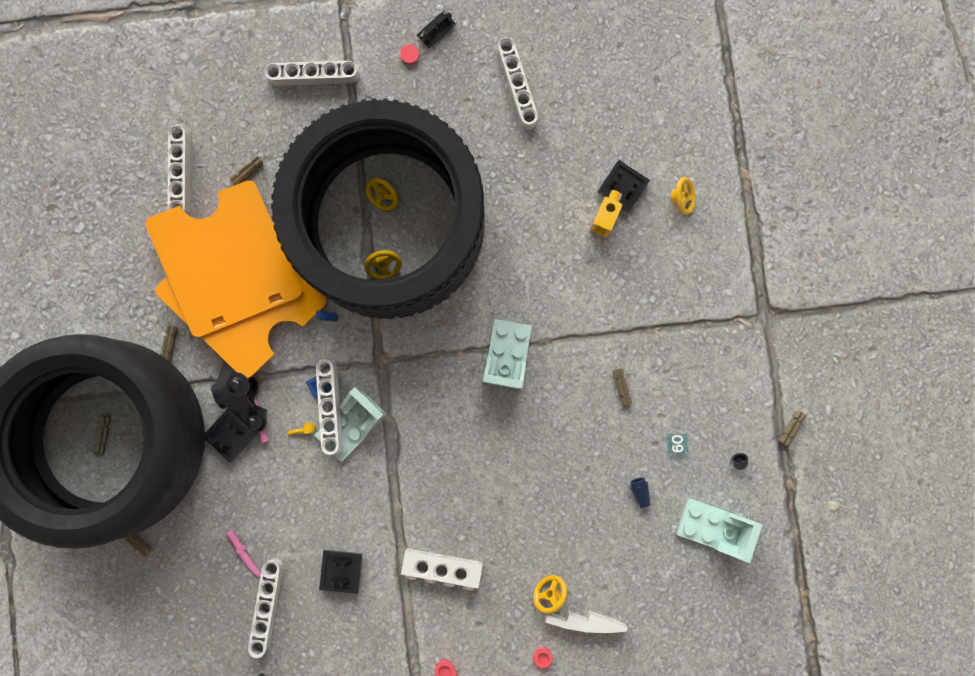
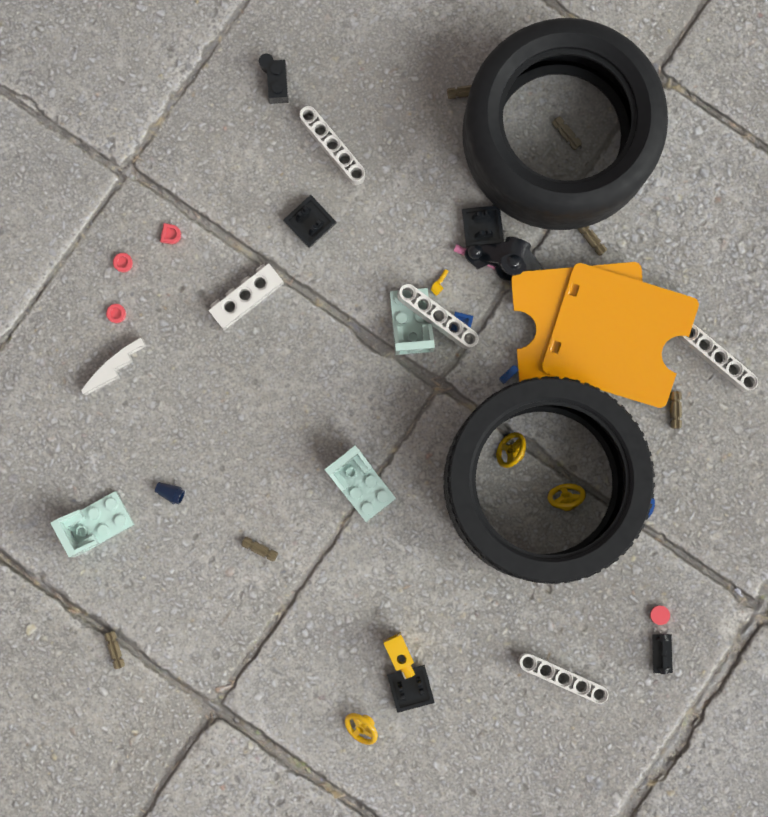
camera: 125 degrees right, 0 degrees up
(240, 549) = (390, 162): bright pink piece -> none
(305, 68) = (718, 522): white beam -> none
(552, 595) = (154, 360): yellow piece -> none
(677, 443) = (181, 552): clear light blue tile -> none
(738, 459) = (126, 587): black hinge -> none

